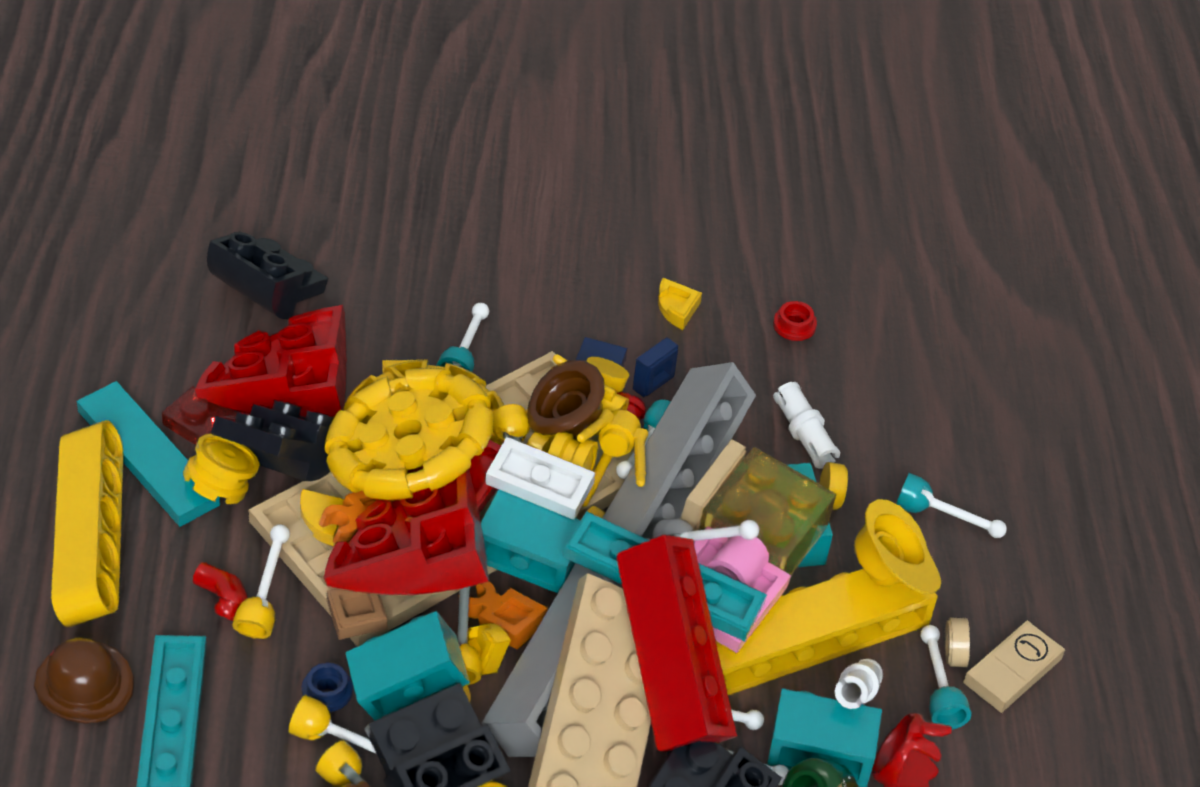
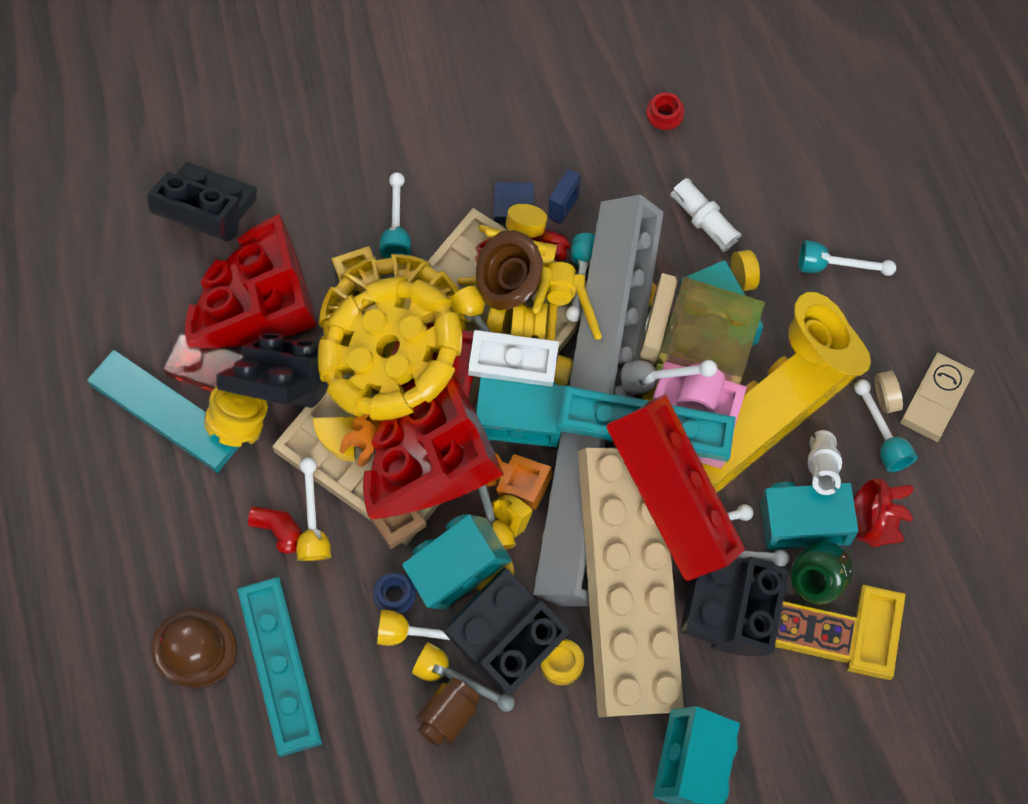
camera: 10 degrees left, 20 degrees up
(88, 524) = (143, 502): yellow beam -> none
(678, 302) = (559, 119): yellow tile -> none

